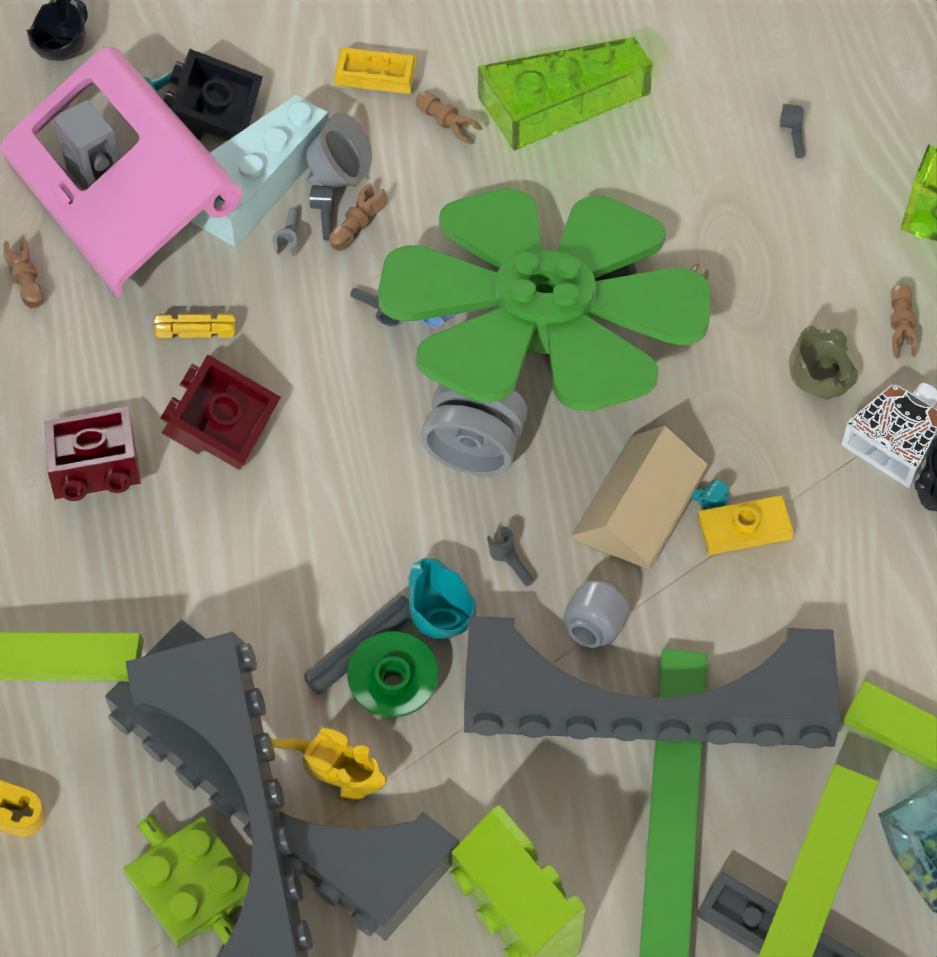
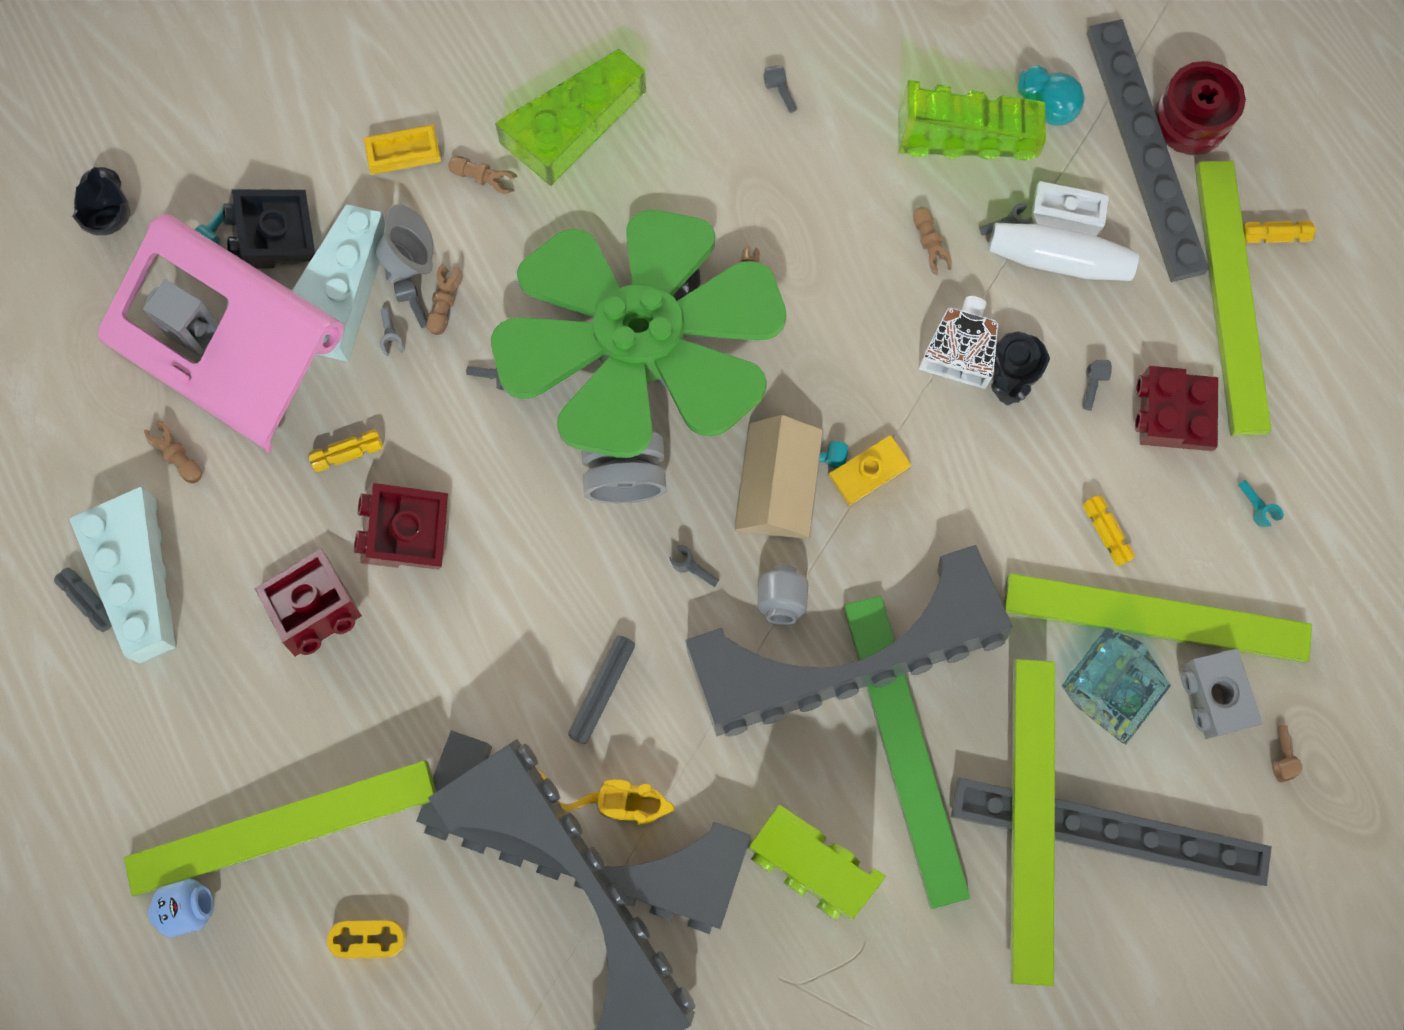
camera: 25 degrees left, 15 degrees up
(188, 880) = (547, 943): lime plate -> none
(390, 655) = (636, 688): green dish -> none
(439, 600) = (653, 630): teal hair -> none
(821, 363) = (883, 307): olive hair -> none

